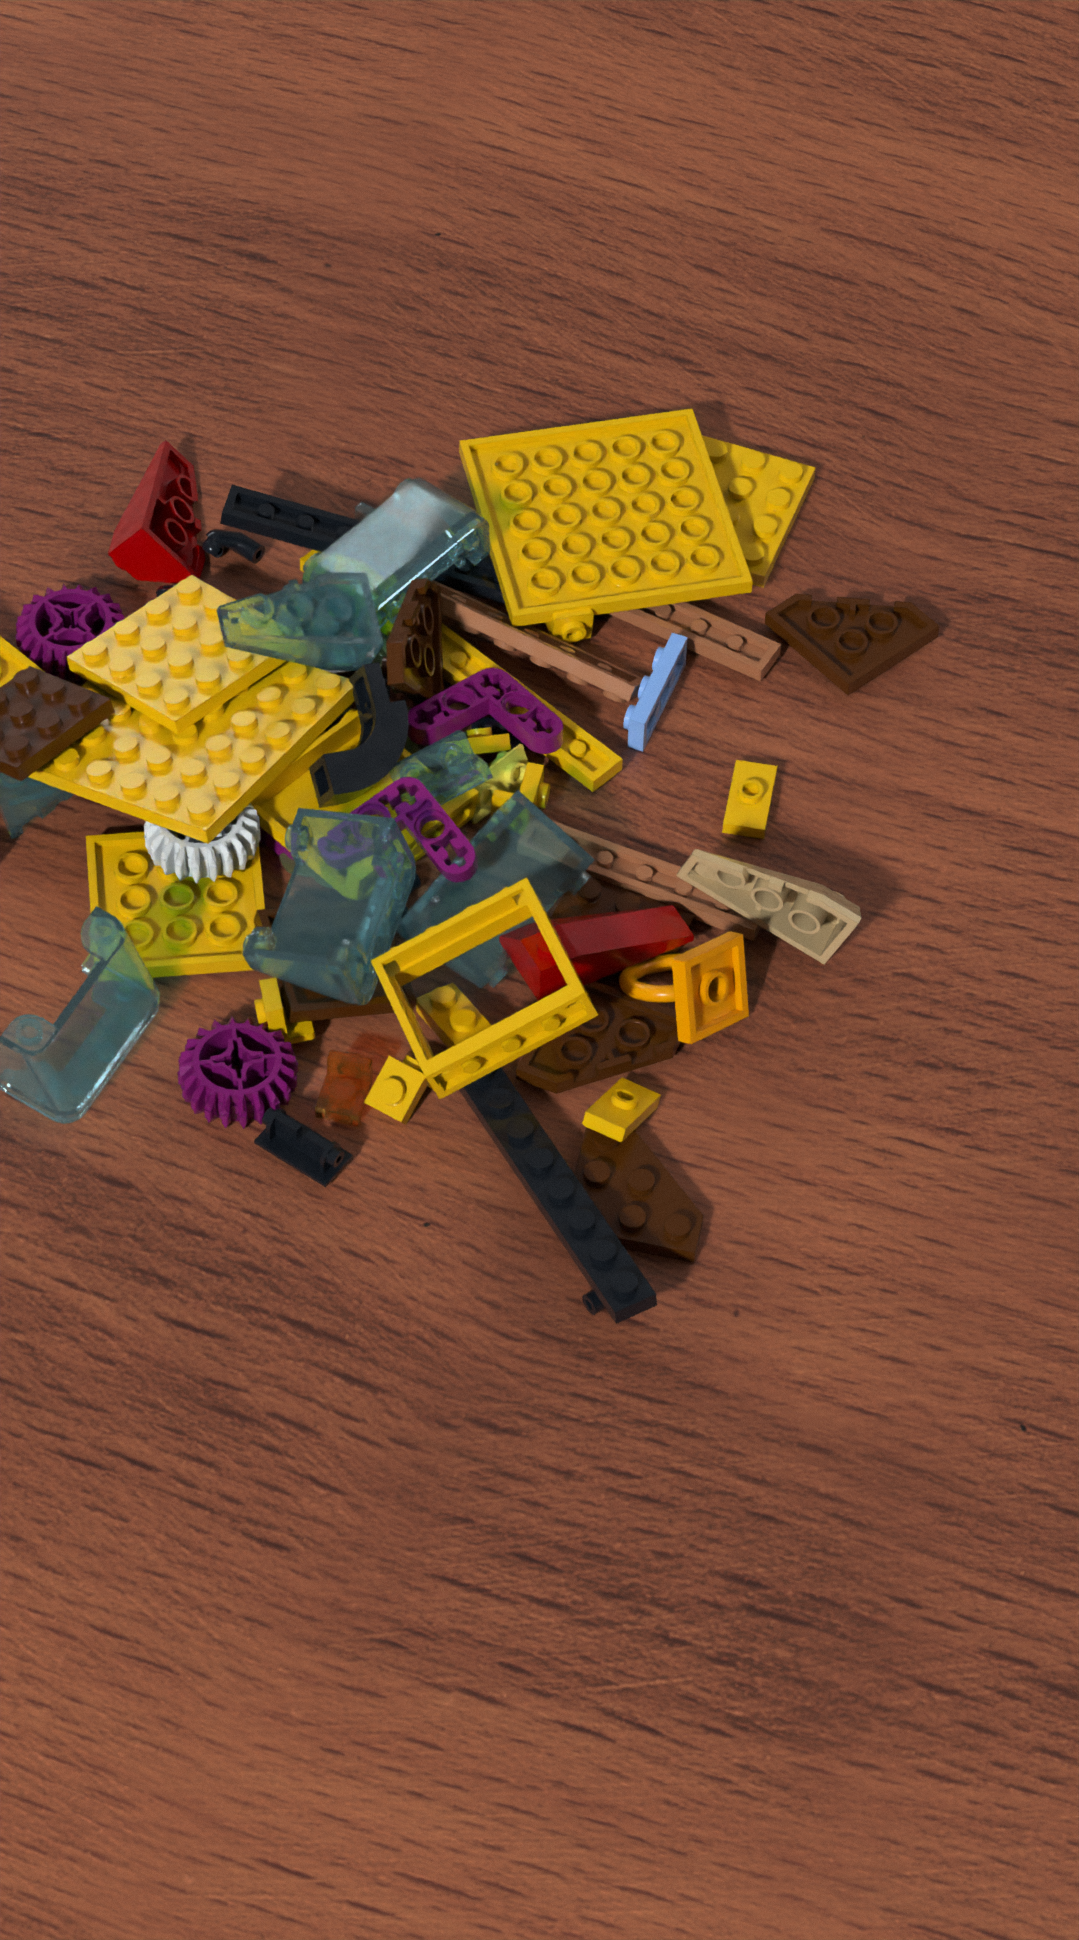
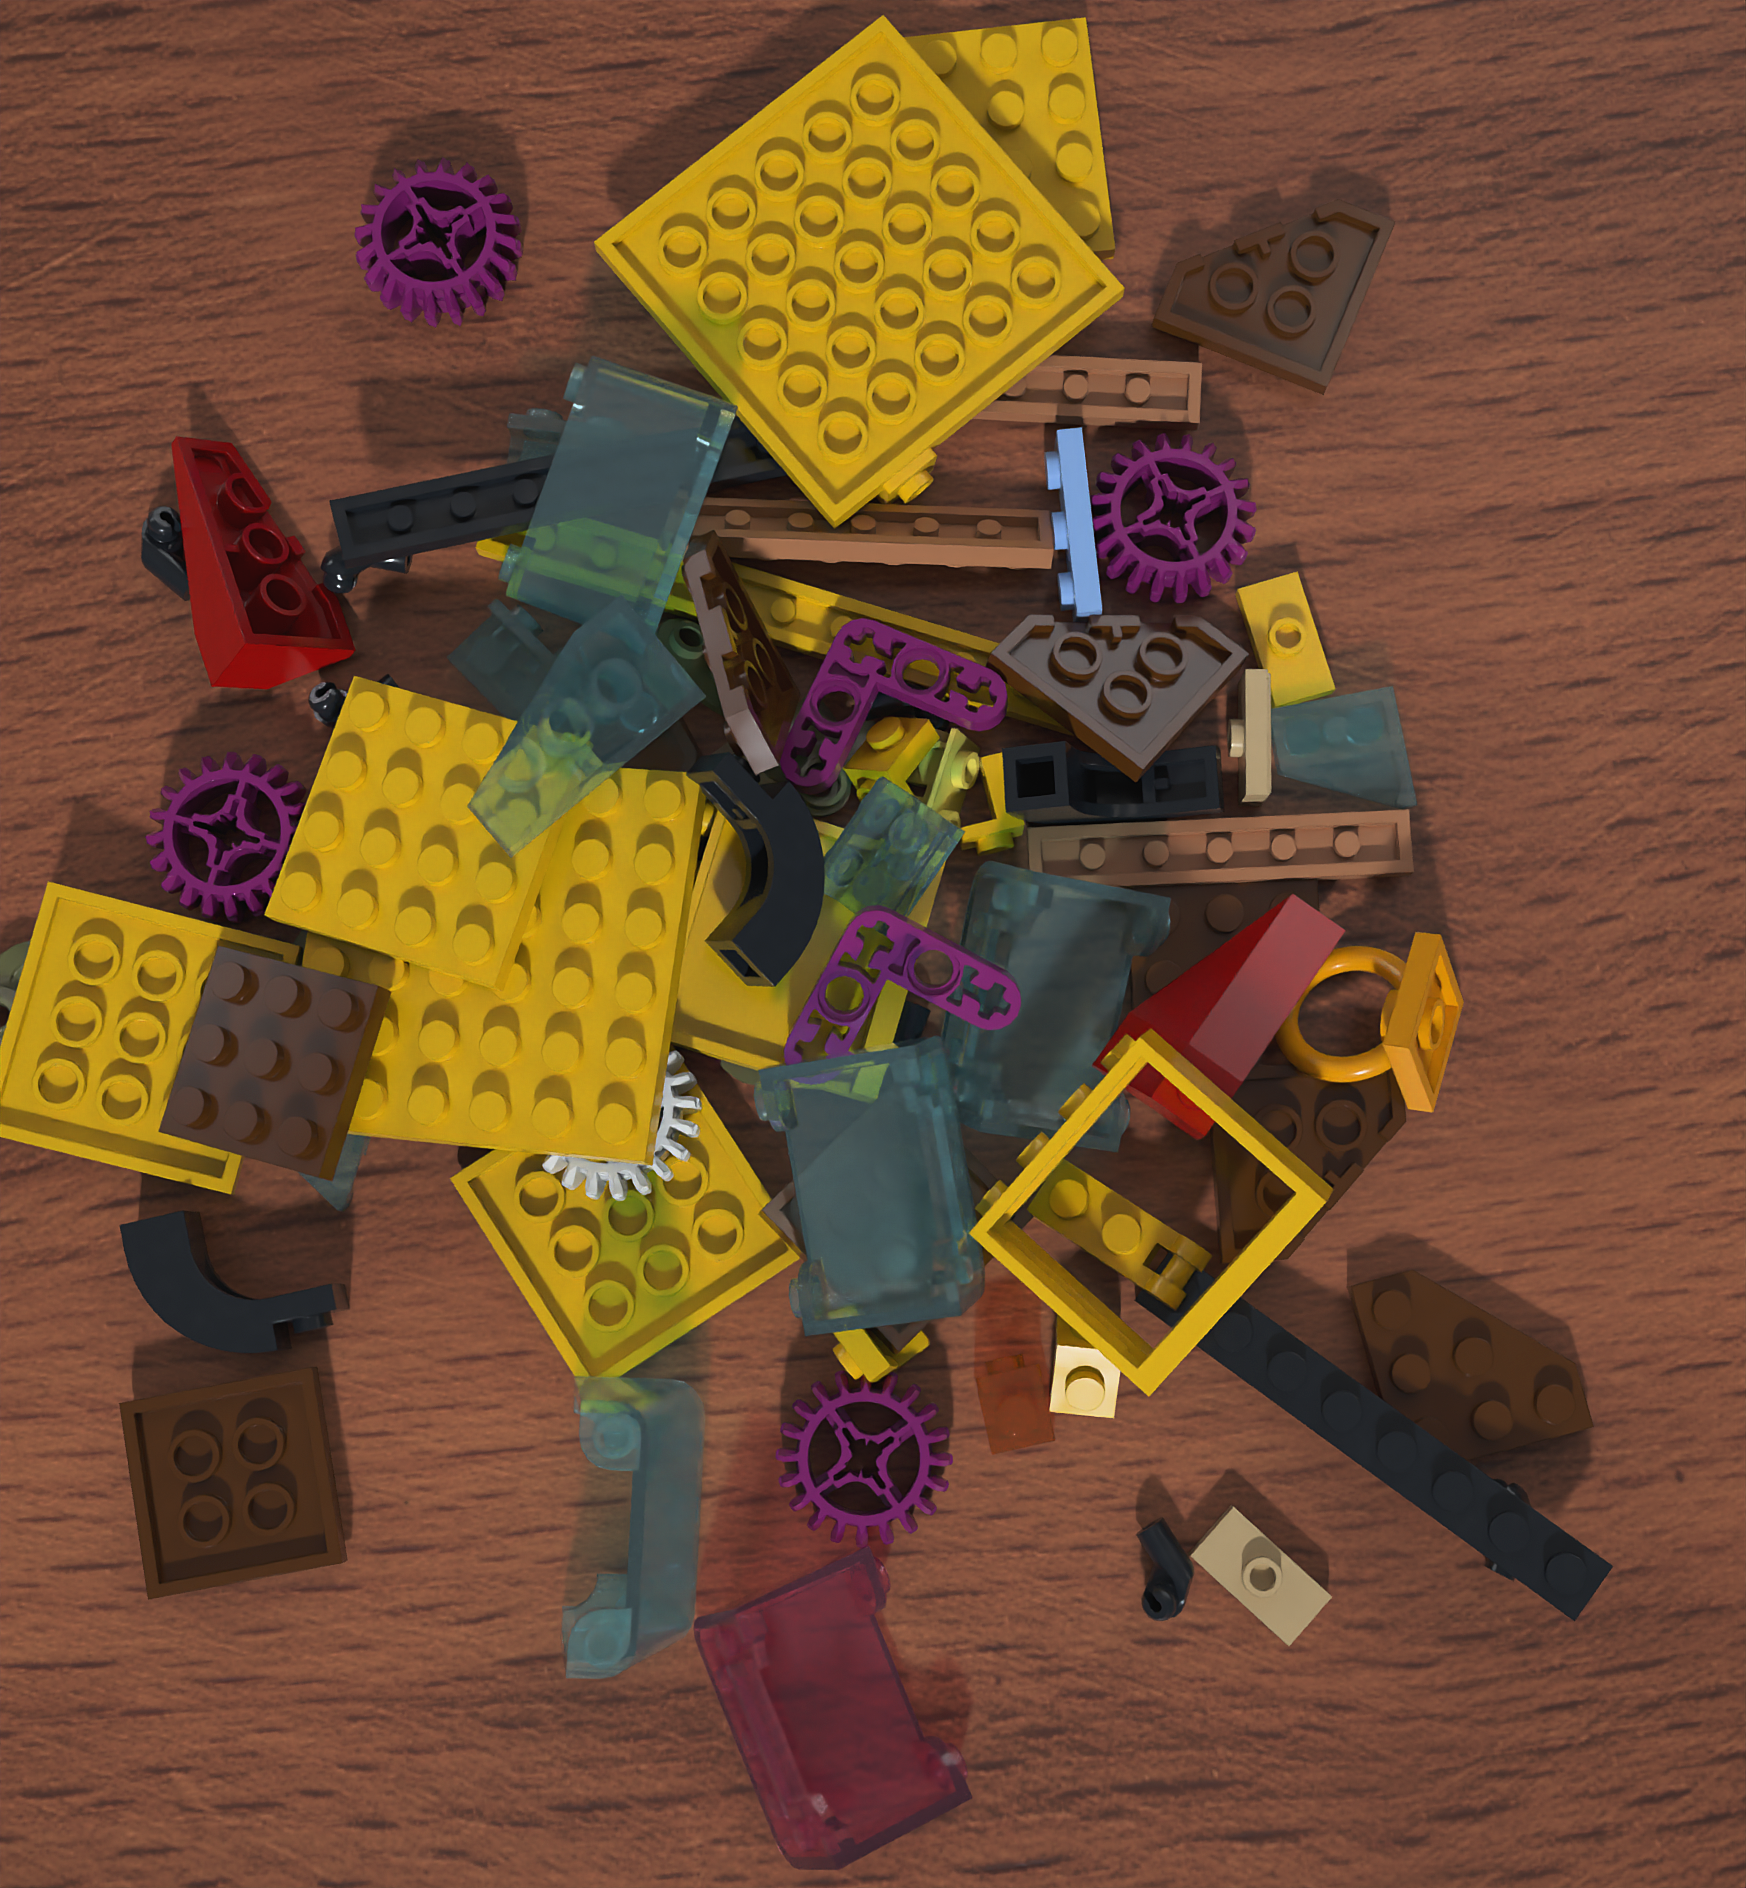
camera: 20 degrees left, 30 degrees up
(121, 492) = (164, 549): none -> black arm
(132, 1175) = (826, 1714): none -> clear pink windscreen
(301, 1147) = (1010, 1523): black hinge -> none
(349, 424) = (418, 256): none -> magenta gear
(384, 1217) = (1170, 1573): none -> black arm
(439, 1242) = (1260, 1575): none -> tan plate
(570, 798) = (1078, 787): none -> black arch
(621, 1109) = (1392, 1258): yellow plate -> none
(635, 764) = (1119, 680): none -> plate
(701, 826) = (1251, 737): none -> tan plate
(742, 709) = (1194, 505): none -> magenta gear
(753, 845) = (1346, 746): none -> clear light blue wing
(785, 905) = (1479, 819): tan wedge -> none

